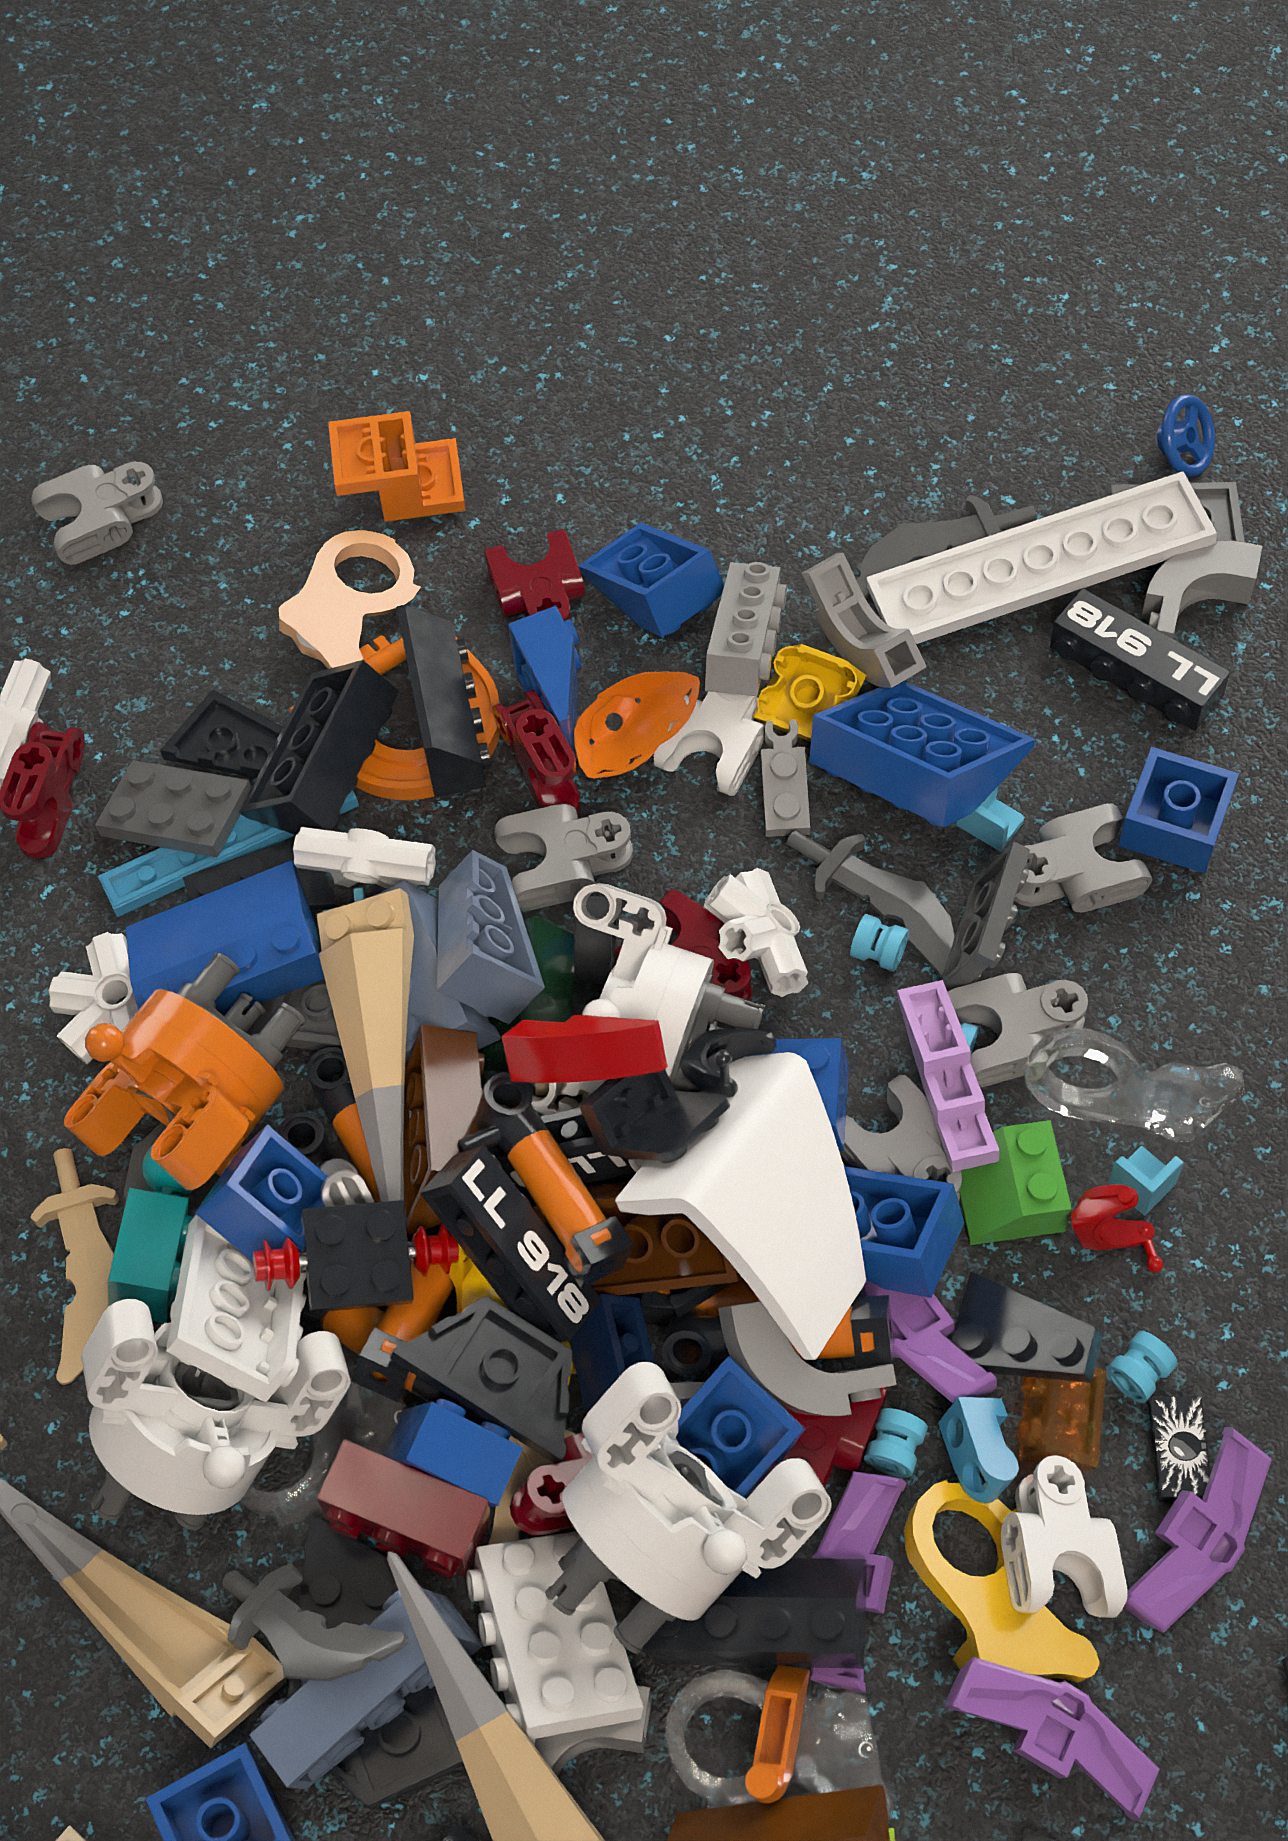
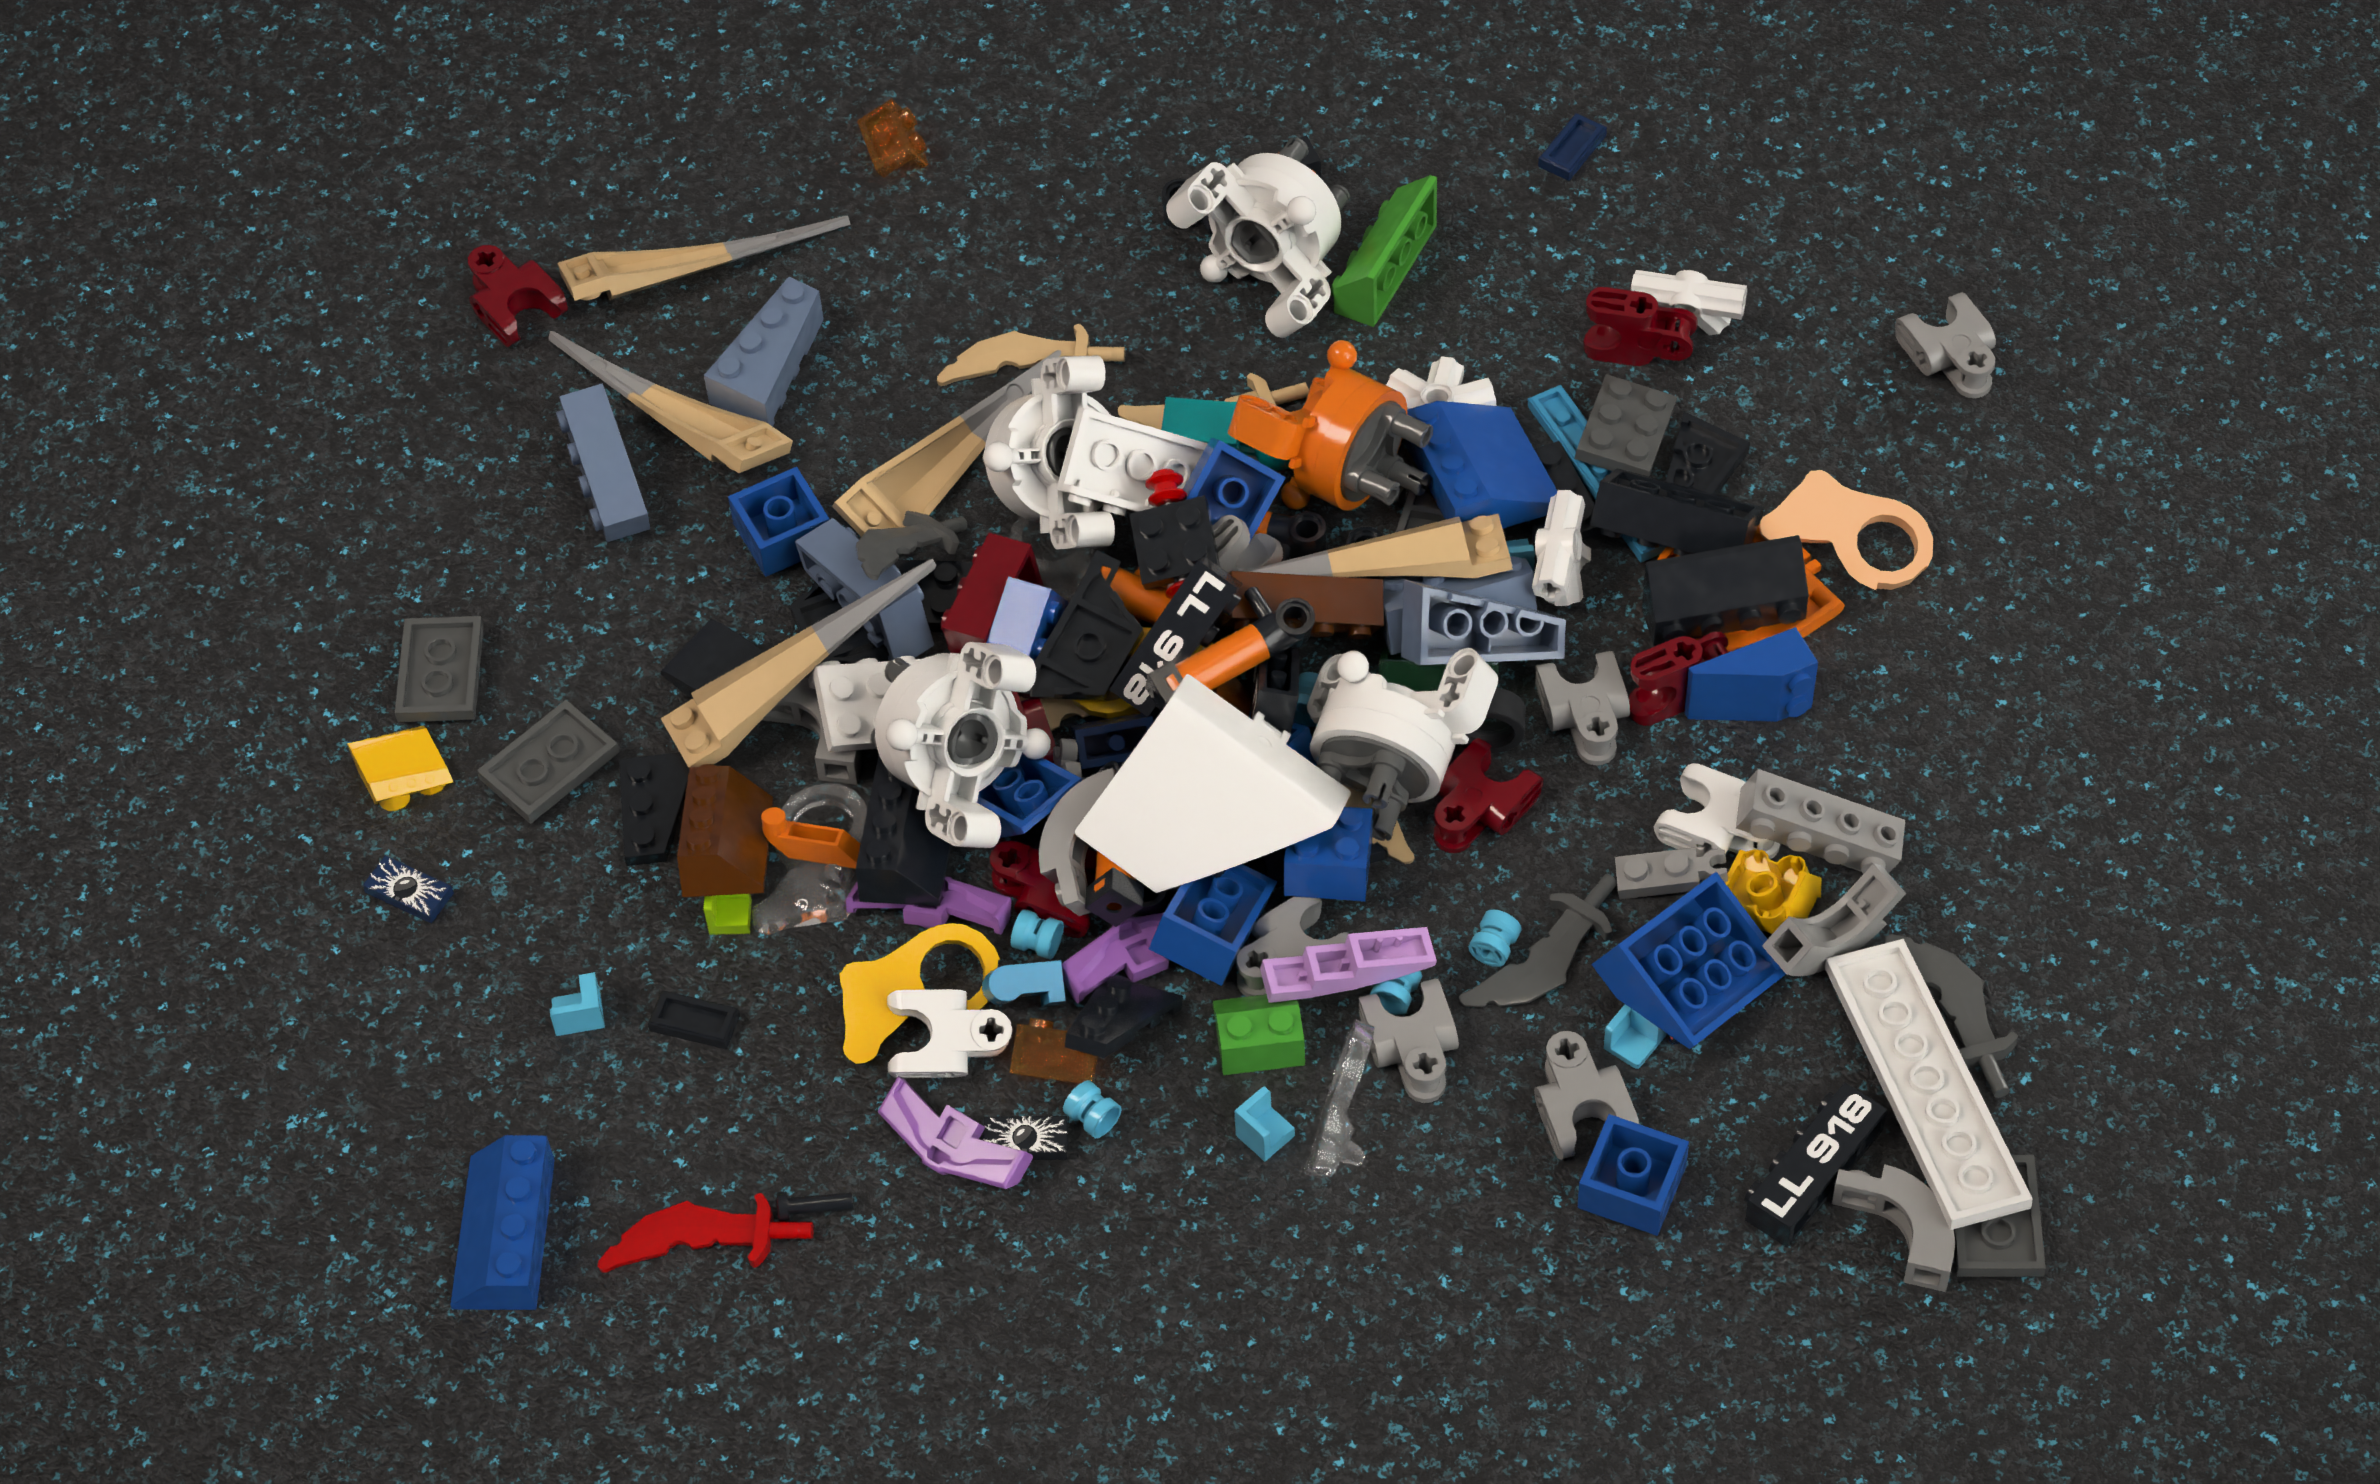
camera: 90 degrees right, 5 degrees down
(383, 457) = (2003, 555): orange bracket -> none
(537, 585) = (1872, 679): dark red piece -> none
(583, 1049) = (1319, 647): red slope -> none
(643, 723) = (1691, 728): orange piece -> none
(648, 1117) = (1274, 705): black bracket -> none
(655, 578) = (1894, 766): blue slope -> none
(716, 1051) = (1337, 763): black helmet -> none
(759, 929) = (1490, 830): white piece -> none
(986, 917) = (1504, 1005): dark grey plate -> none
(1057, 1729) = (802, 1020): medium lavender plate -> none
(1099, 1231) = (1216, 1098): red helmet -> none
(1182, 435) = (2111, 1214): blue piece -> none

